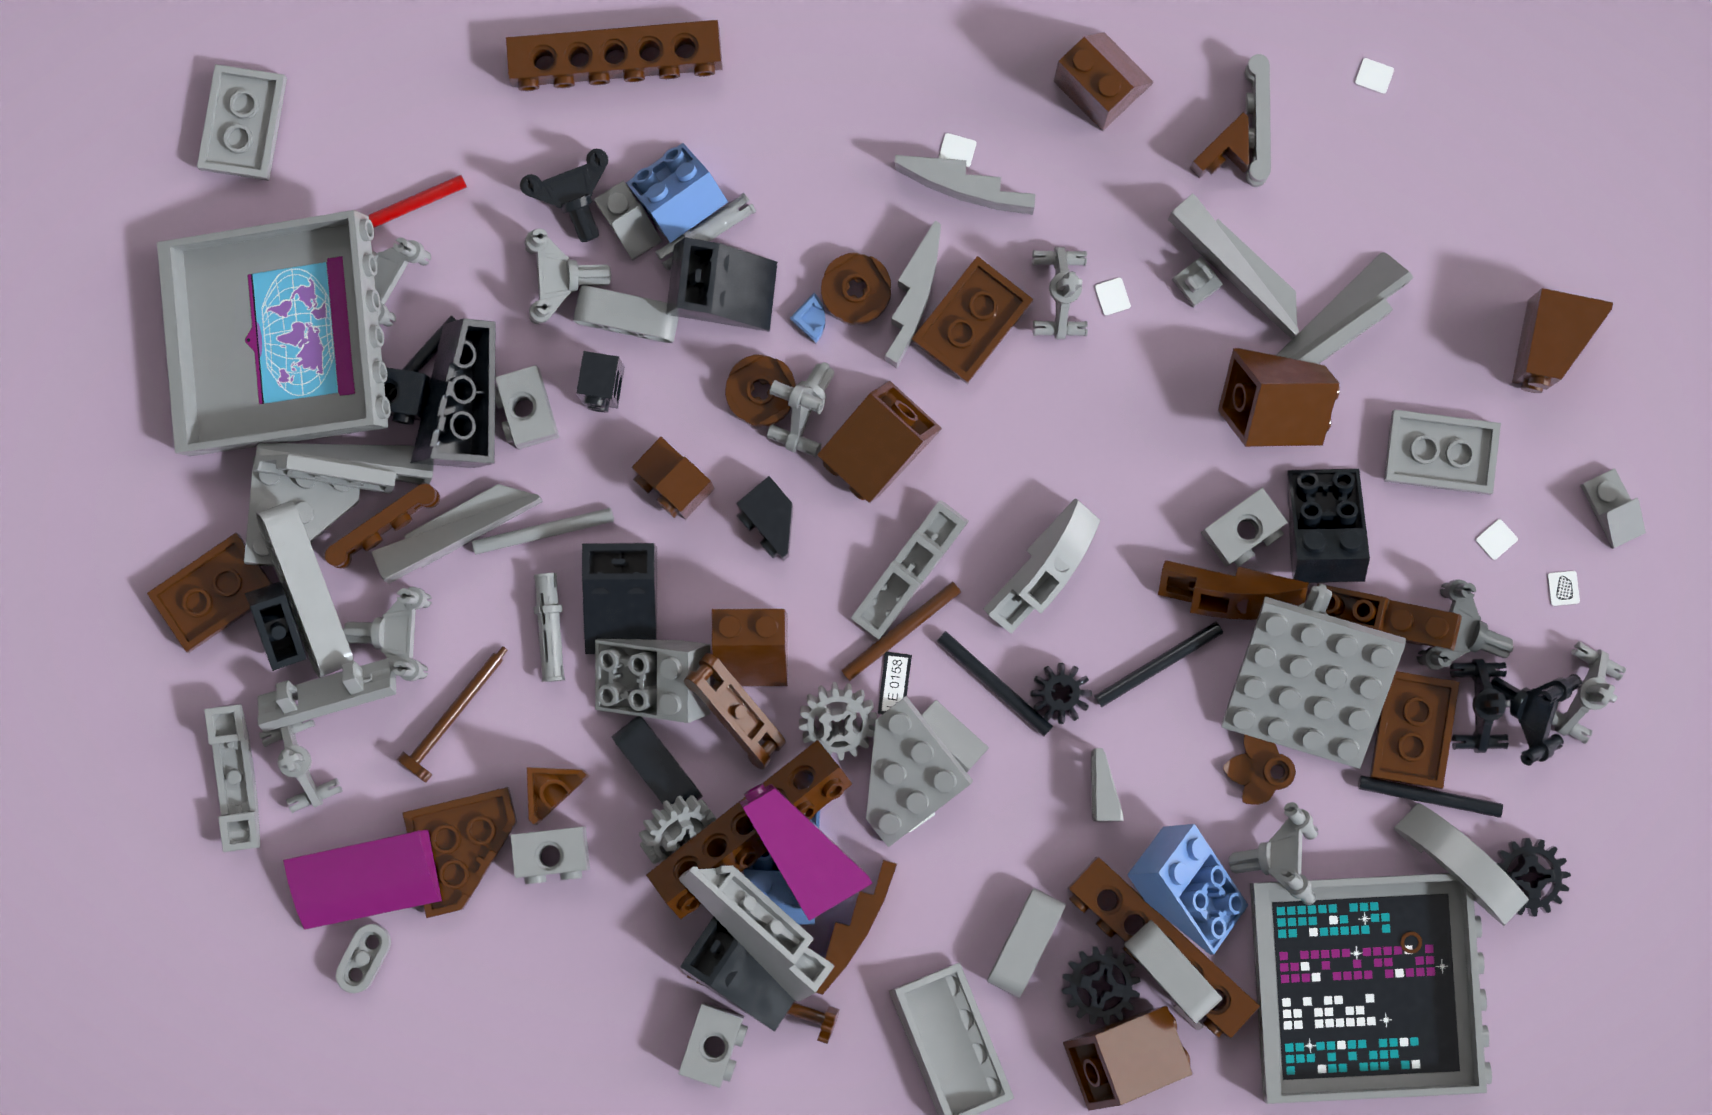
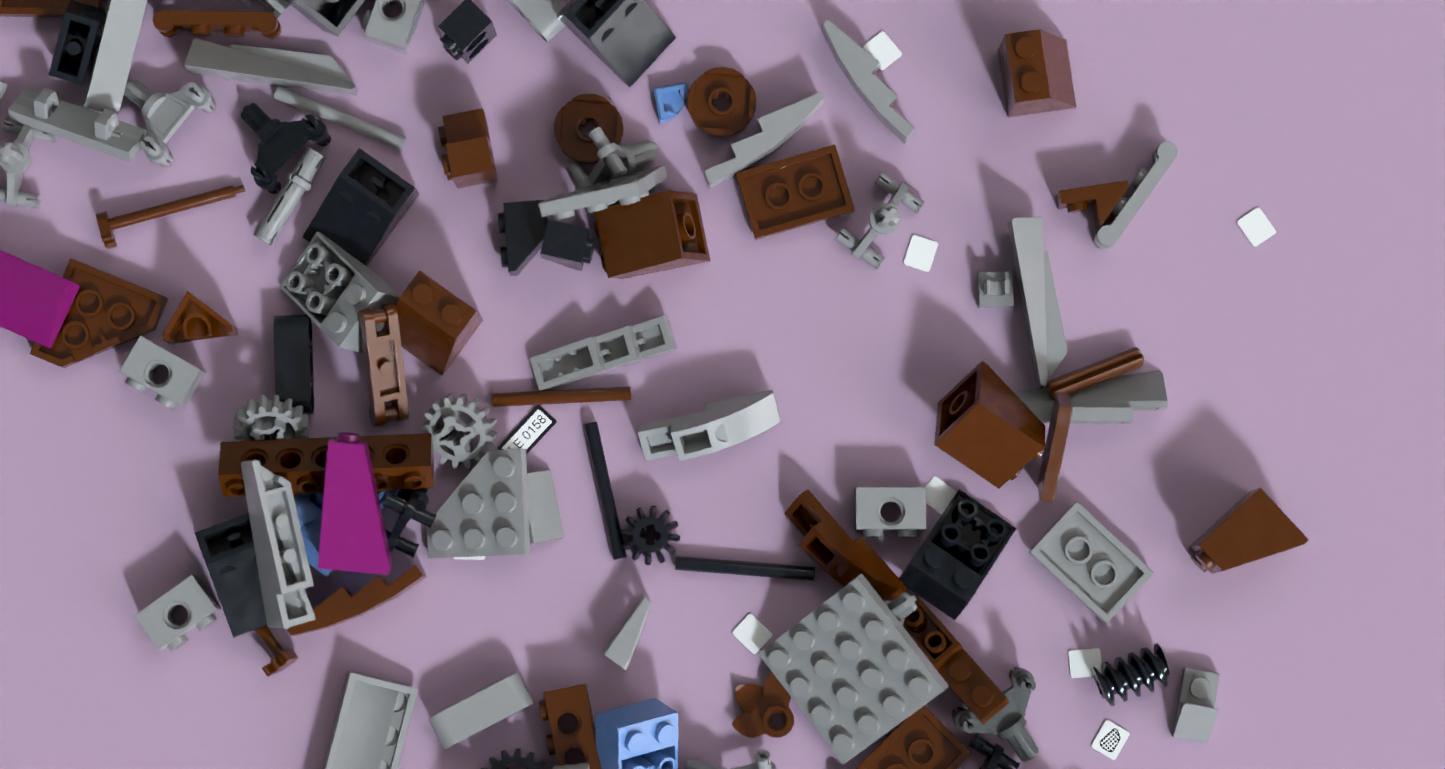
camera: 30 degrees right, 0 degrees up
(508, 587) = (279, 142): none -> black axle
(814, 439) = (597, 196): none -> light grey plate
(817, 499) = (567, 245): none -> black slope
(845, 814) = (410, 505): none -> black axle
(1203, 714) = (752, 633): none -> white sticker
(1275, 486) = (938, 494): none -> white sticker
(1331, 292) = (1096, 372): none -> reddish brown axle
(1344, 371) = (1054, 447): none -> reddish brown tile
(1544, 520) = (1132, 674): none -> black piece

